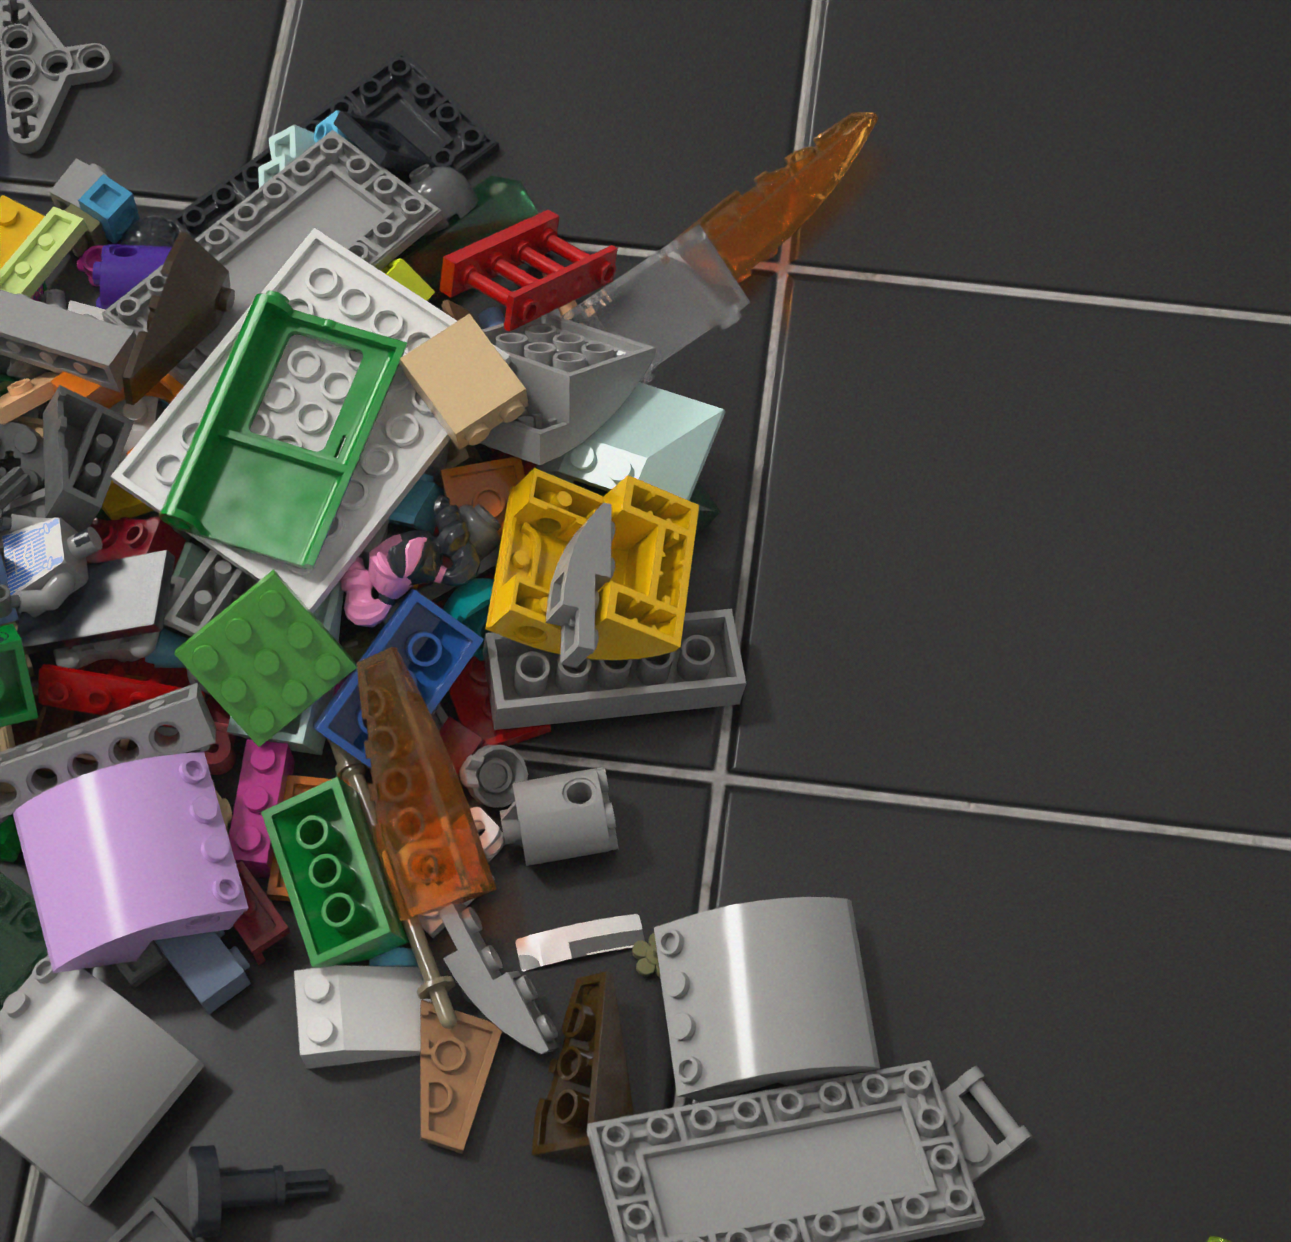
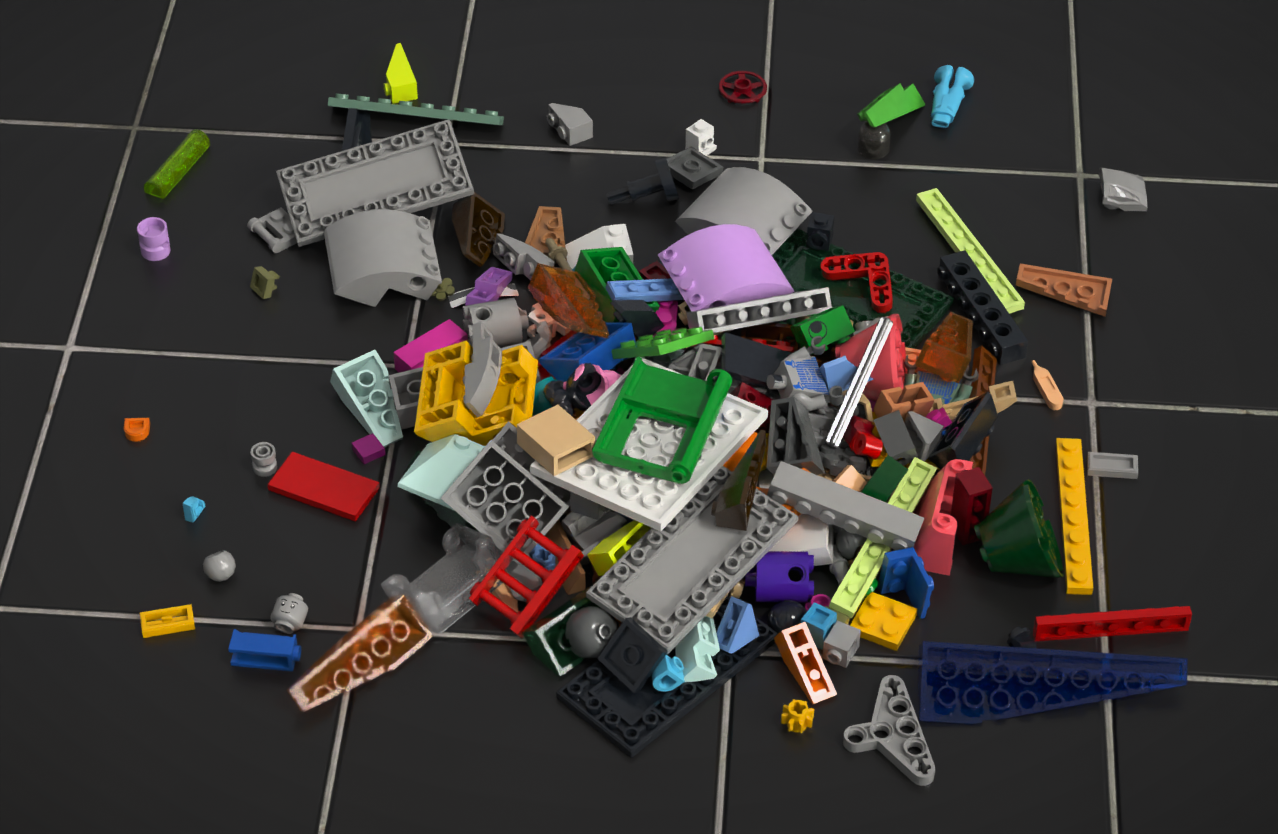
camera: 175 degrees right, 20 degrees down
(142, 168) = (805, 662): none -> orange slope
(167, 86) = (797, 716): none -> yellow gear
(227, 191) = (737, 626): none -> medium blue slope
(290, 832) = (644, 290): none -> medium blue tile
(303, 767) = (640, 314): none -> black slope
(568, 926) = (489, 286): none -> medium lavender slope
(674, 782) = (412, 354): none -> dark pink brick
(779, 590) = (368, 448): none -> magenta tile
(783, 682) = (367, 394): none -> light aqua wedge
(848, 517) = (323, 486): none -> red tile
(885, 272) = (289, 613): none -> light grey head
(917, 214) = (264, 651): none -> blue window
(952, 568) = (263, 459): none -> light grey wheel
(984, 970) = (263, 282): none -> olive tile
(999, 357) = (219, 566): none -> light grey piece
(1053, 474) = (192, 508): none -> medium azure tile
(1068, 290) = (167, 624): none -> yellow tile
(1170, 650) = (136, 428): none -> orange tile
(1207, 1084) = (153, 239): none -> lavender wheel

